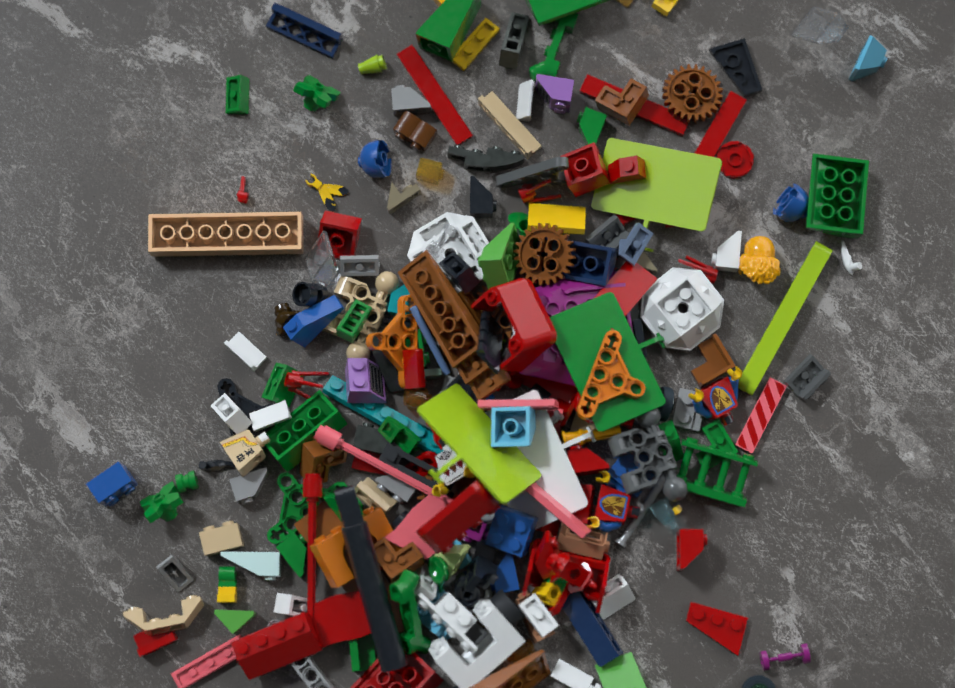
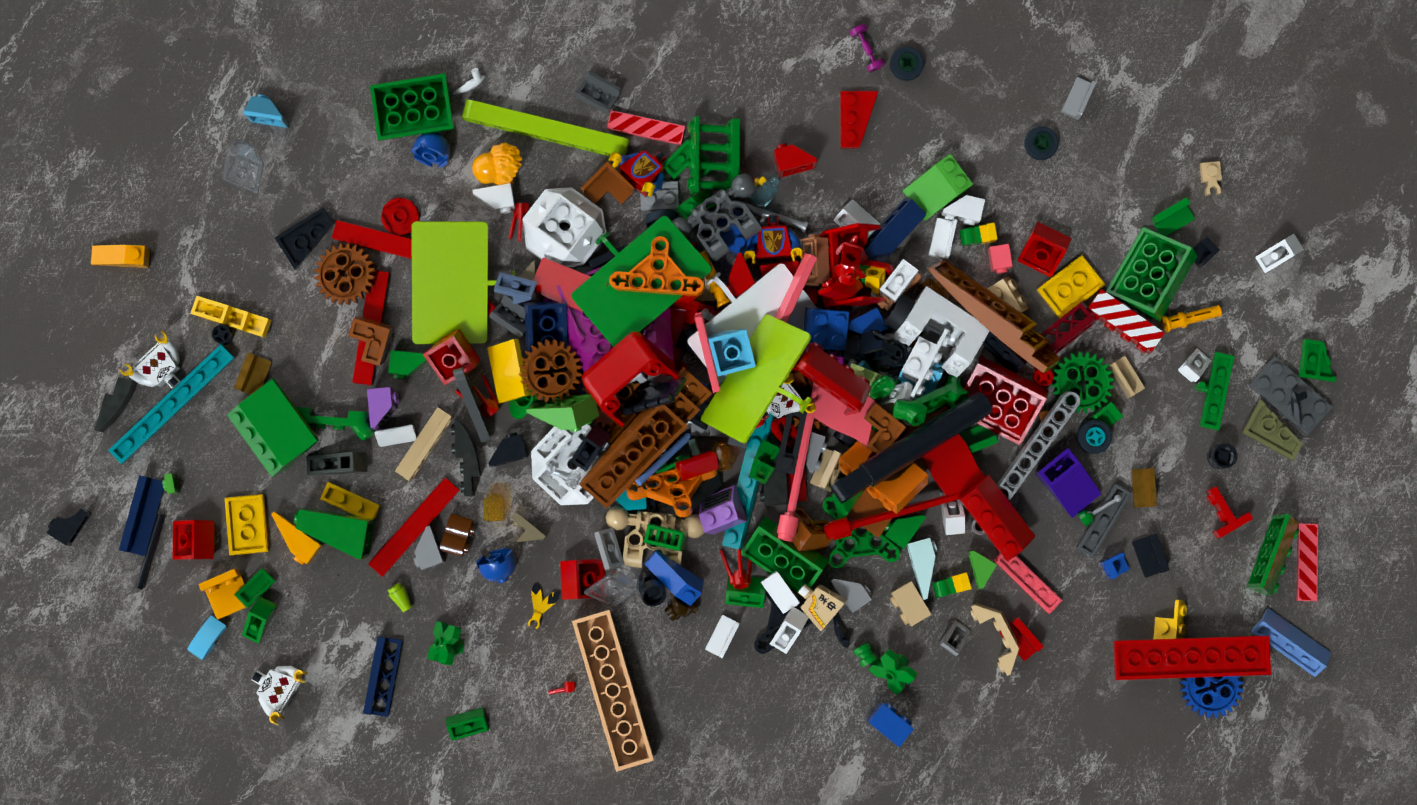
camera: 110 degrees left, 5 degrees up
(627, 169) = (443, 315): red slope -> none

